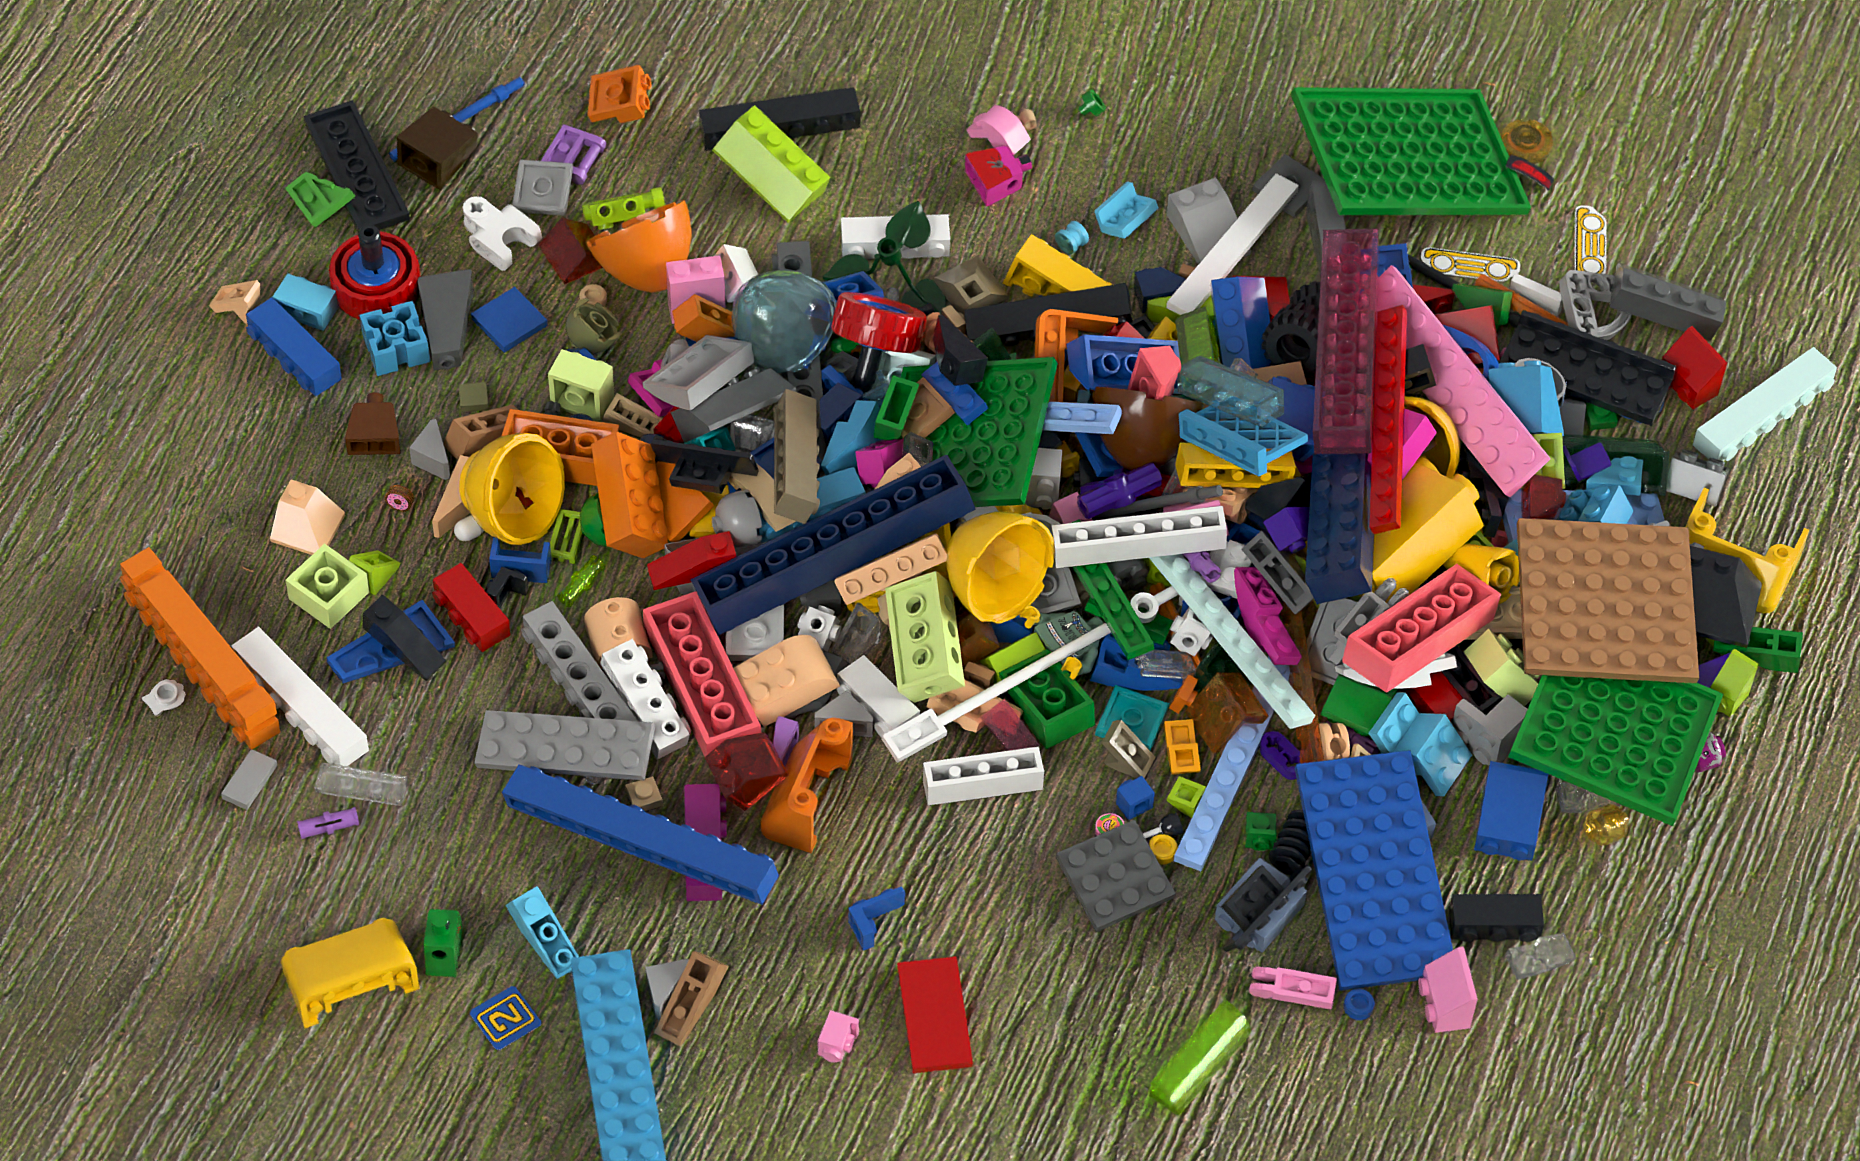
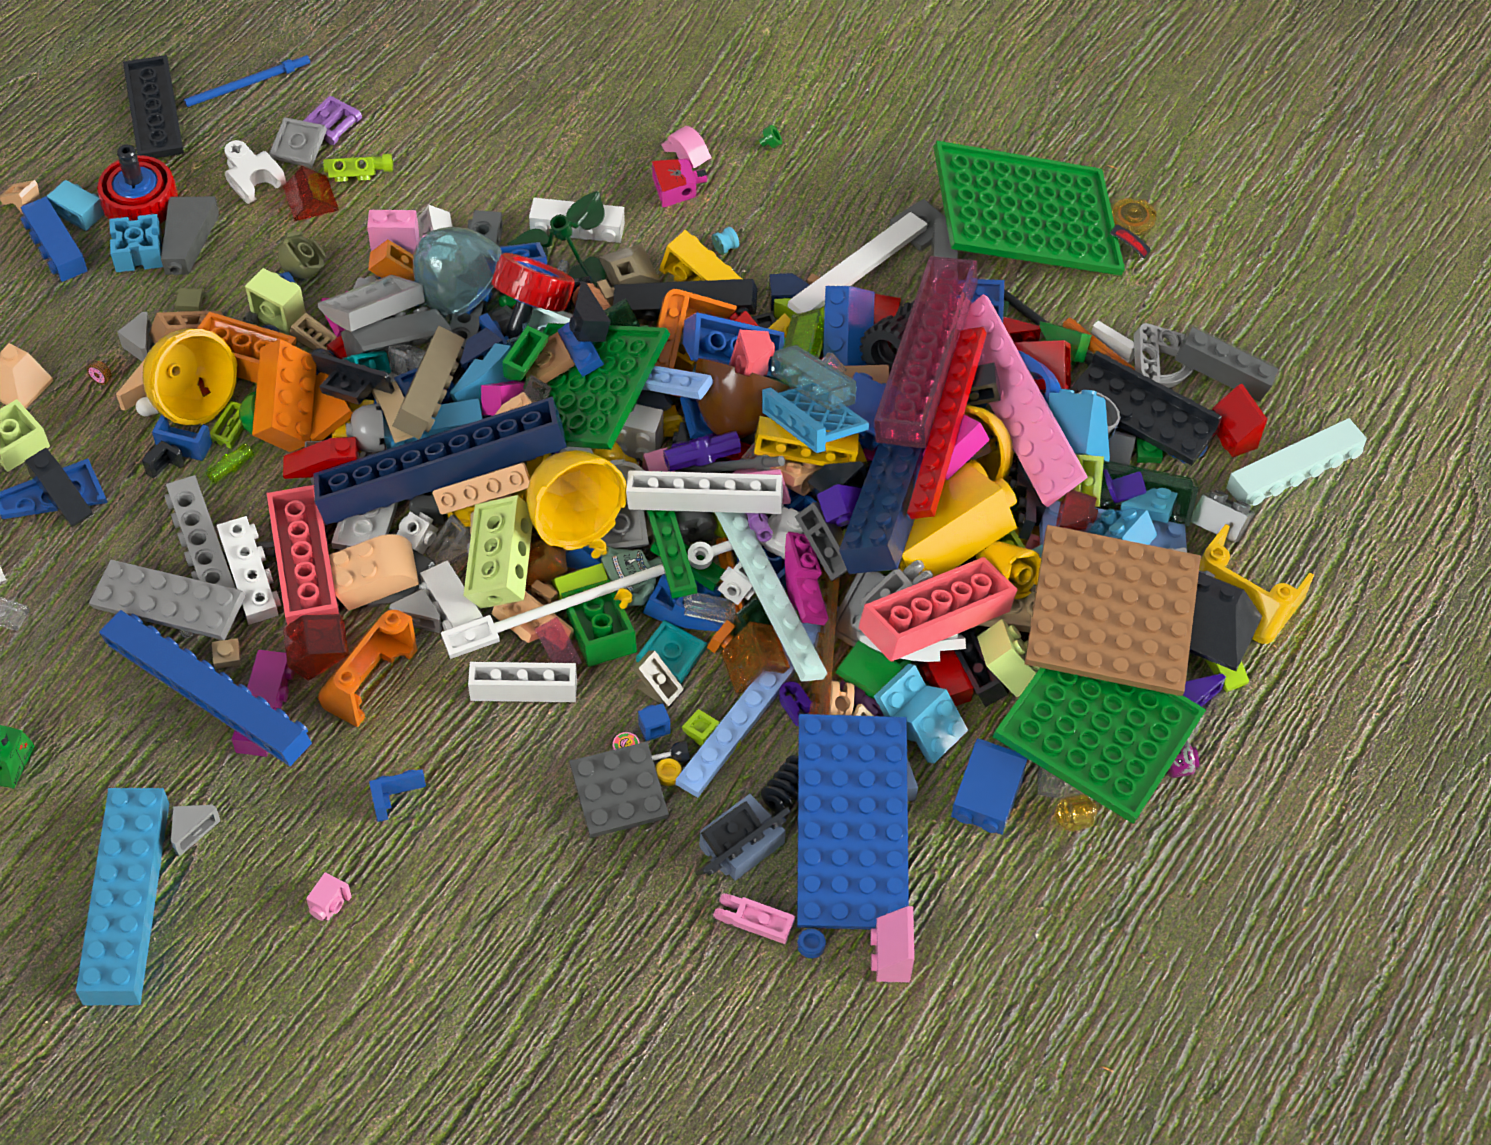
camera: 10 degrees right, 0 degrees up
(318, 197) = (113, 125): bright green wing -> none
(372, 428) = (96, 312): reddish brown torso -> none
(377, 566) = (58, 427): lime slope -> none
(435, 147) = (218, 98): dark brown slope -> none
(470, 607) = (127, 471): red brick -> none
(505, 1018) = (44, 832): sticker -> none
(509, 319) = (239, 242): blue tile -> none
(543, 931) = (98, 758): medium azure slope -> none
(595, 294) = (315, 231): tan tile -> none
(613, 624) = (250, 500): light nougat brick -> none
(619, 95) = (383, 79): orange plate -> none
(644, 245) = (352, 194): orange piece -> none
(690, 997) = (209, 839): medium nougat slope -> none
(771, 164) = (488, 147): lime slope -> none
(785, 737) = (358, 624): medium lavender slope -> none
(792, 115) = (508, 114): black brick -> none
(934, 1015) = (422, 891): red tile -> none
(1027, 119) = (713, 142): tan hand -> none
(1124, 211) = (774, 225): medium azure bracket -> none
(1181, 746) = (708, 683): light orange slope -> none
(1200, 1058) = (651, 971): clear neon green brick -> none
(1201, 216) = (839, 236): light grey slope -> none
(1260, 831) = (760, 769): green bracket -> none
(1470, 264) = (1062, 309): sticker -> none
(1492, 734) = (984, 712): light grey bracket -> none
(1496, 917) = (956, 882): black brick -> none
(1545, 955) = (989, 926): clear slope -> none
(1590, 240) = (1171, 303): sticker -> none
(1734, 681) = (1219, 701): lime slope -> none
(1770, 649) = (1257, 675): green slope -> none

